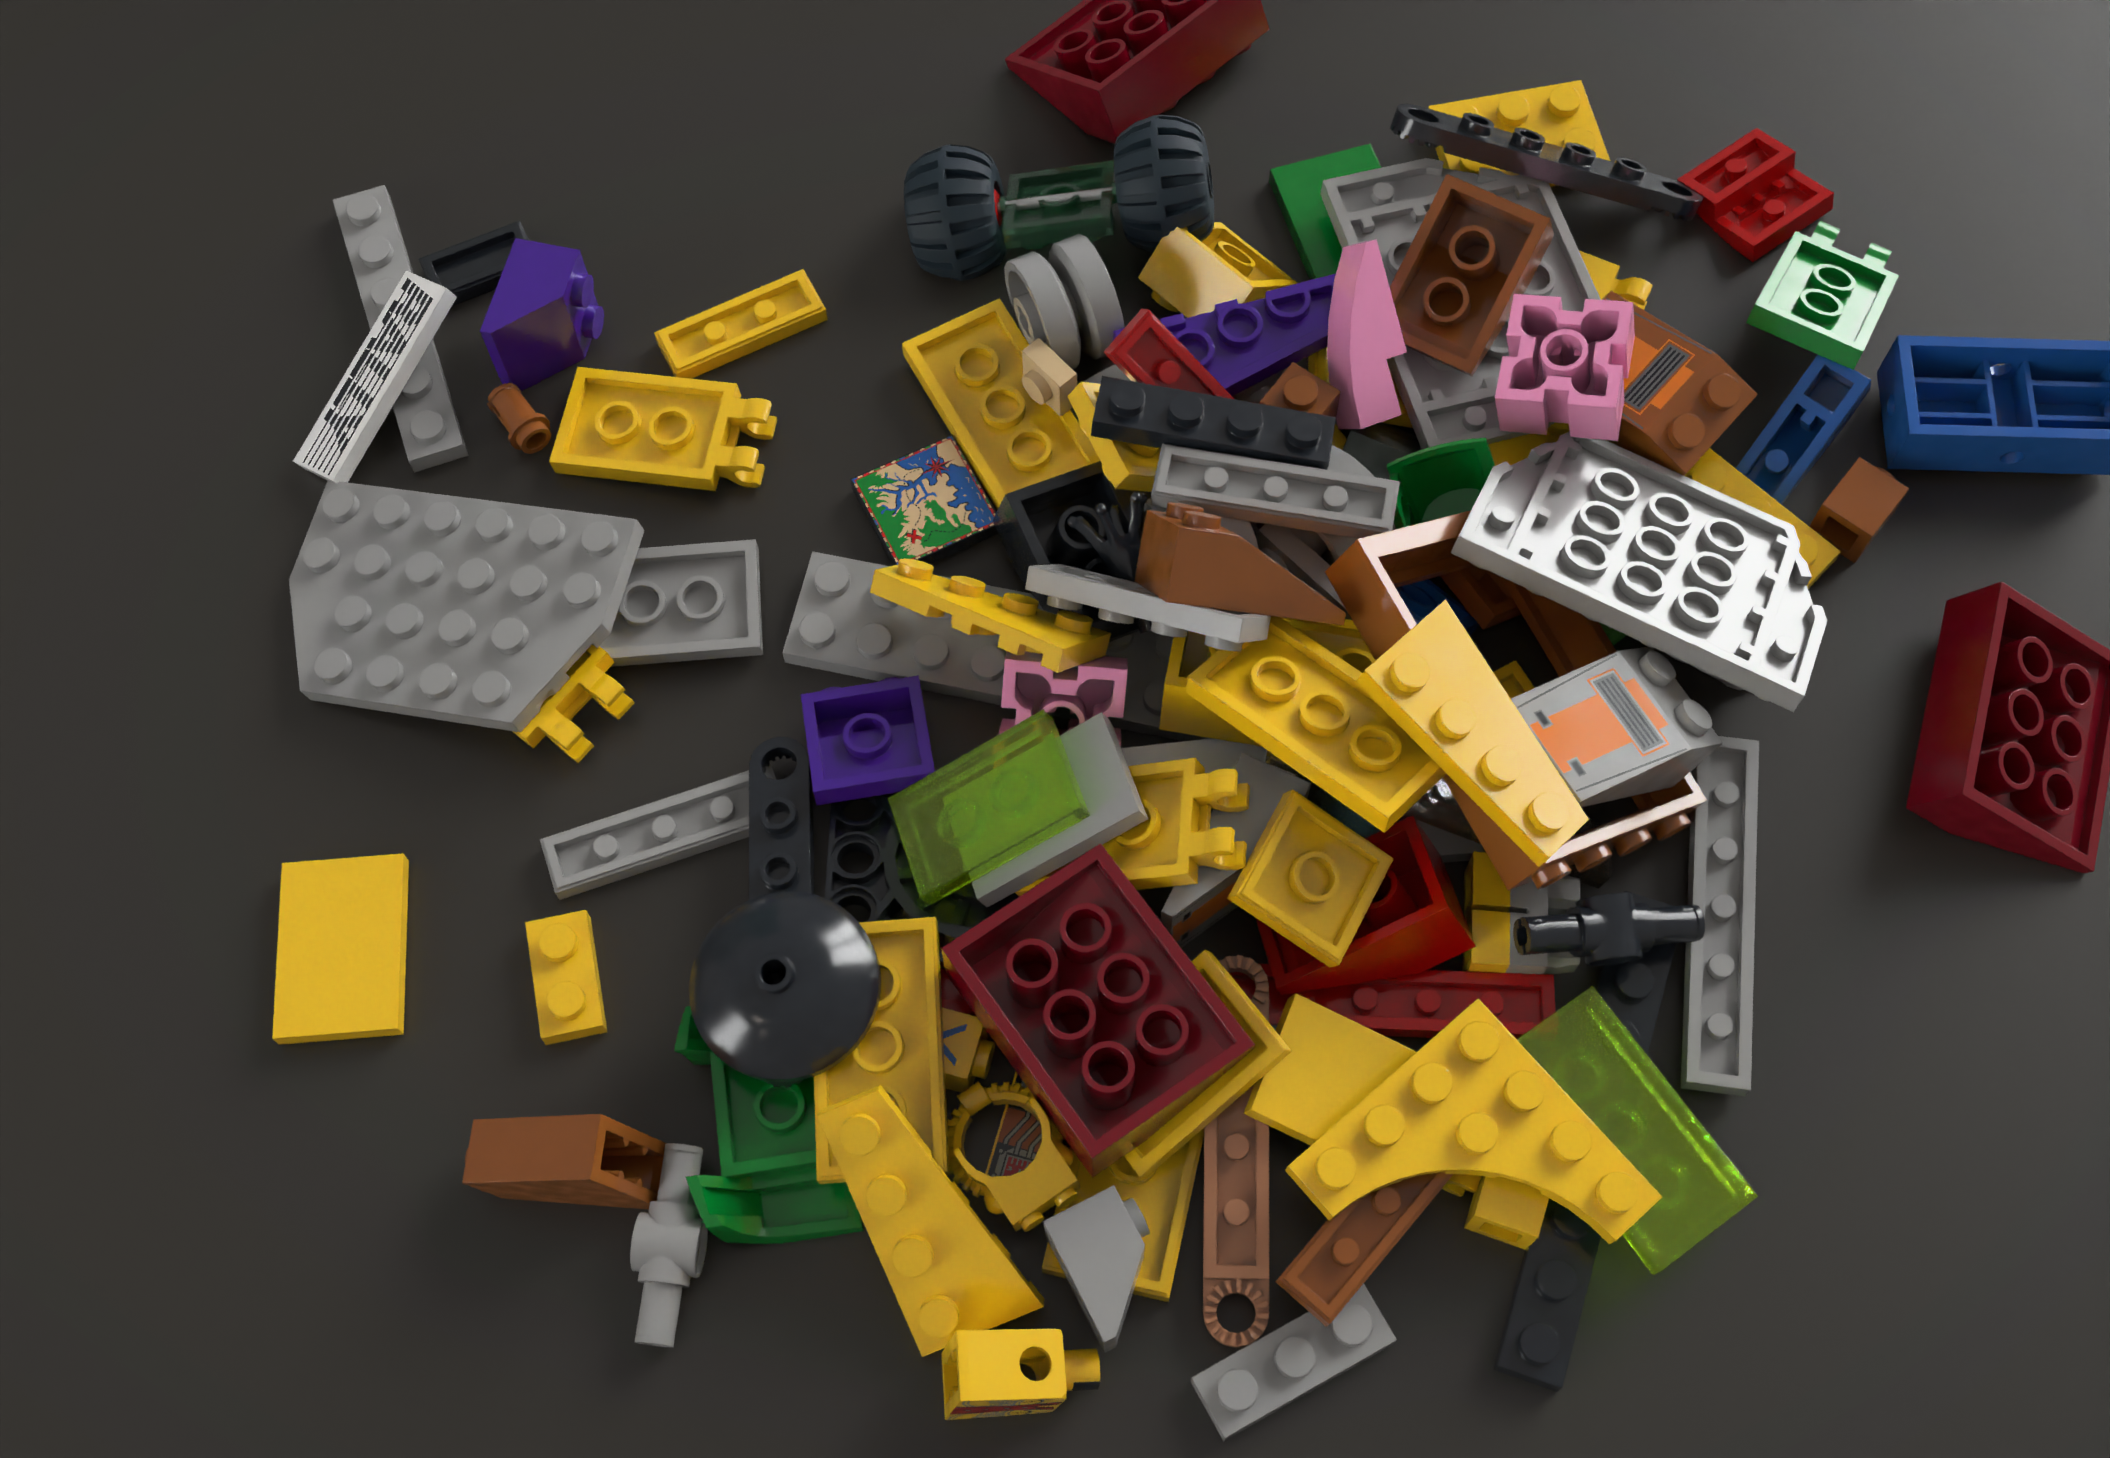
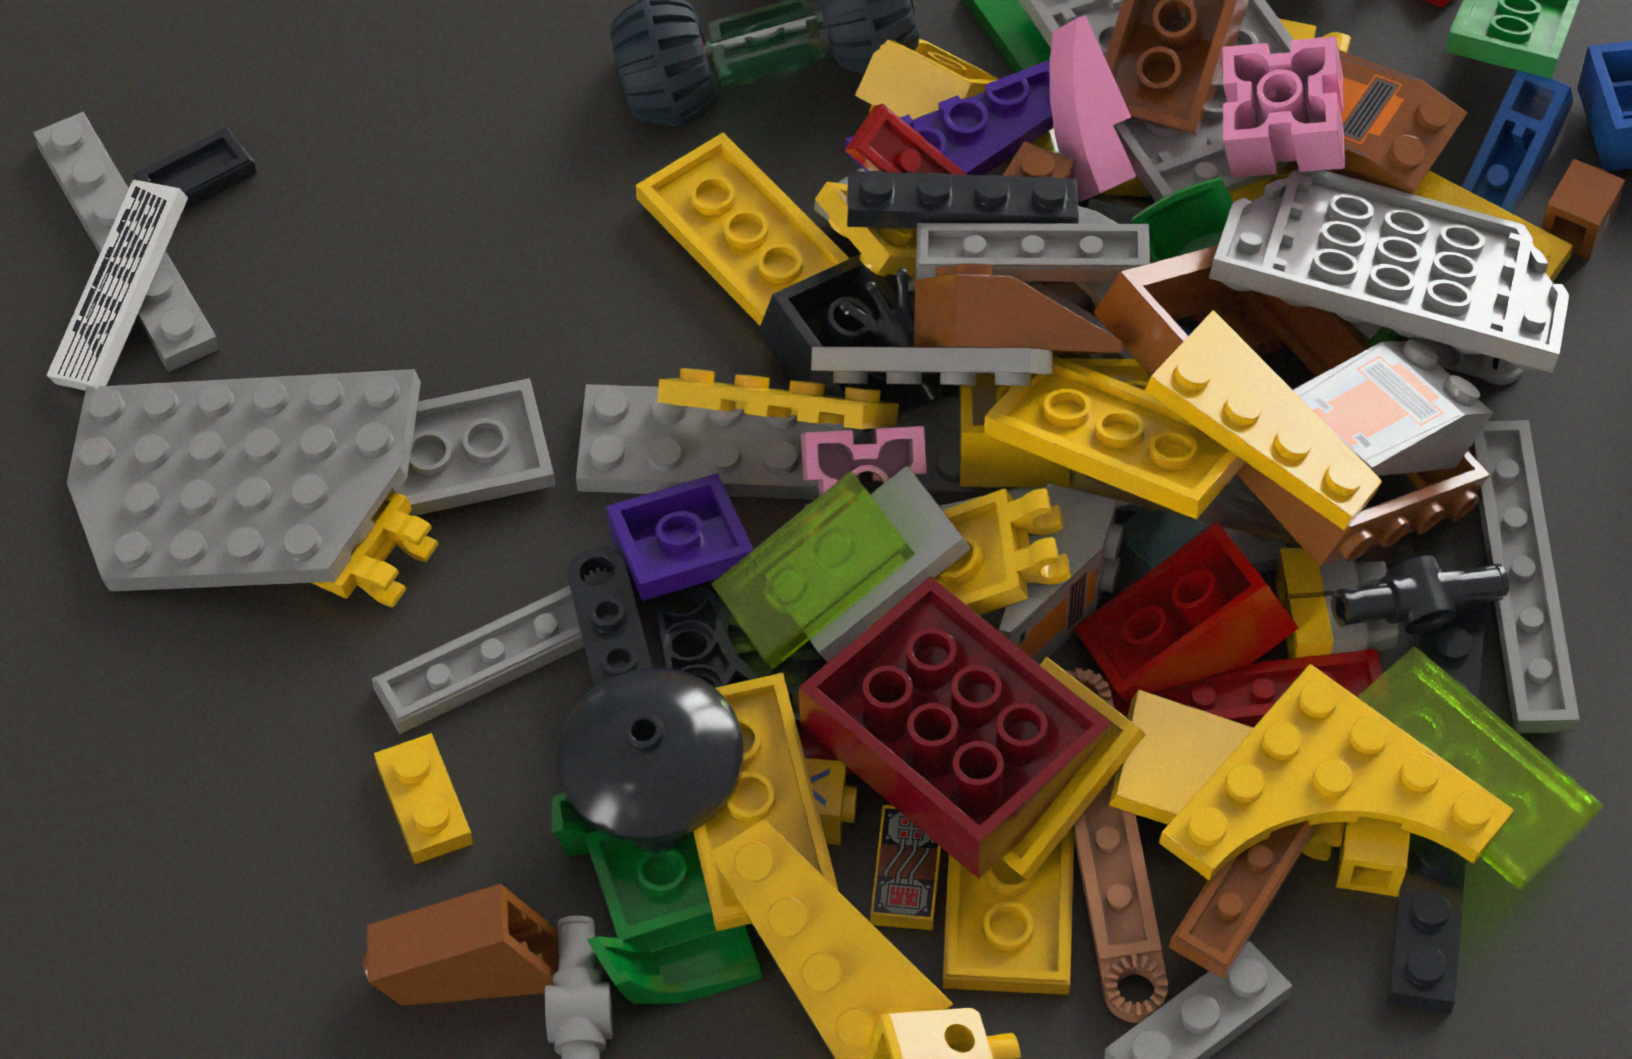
camera: 10 degrees left, 10 degrees down
(341, 949) = (193, 806): yellow tile -> none
(526, 428) = (277, 313): dark orange pin -> none
(541, 313) = (276, 202): dark purple slope -> none
(660, 430) = (411, 297): yellow tile -> none
(741, 325) = (469, 194): yellow tile -> none
(926, 503) = (687, 326): tile -> none
(1029, 1192) = (915, 906): yellow piece -> none
(1047, 377) = (789, 192): tan plate -> none
(1065, 299) = (791, 124): light grey wheel -> none
(1101, 1257) = (997, 950): light grey slope -> none
(1310, 878) = (1133, 582): yellow tile -> none

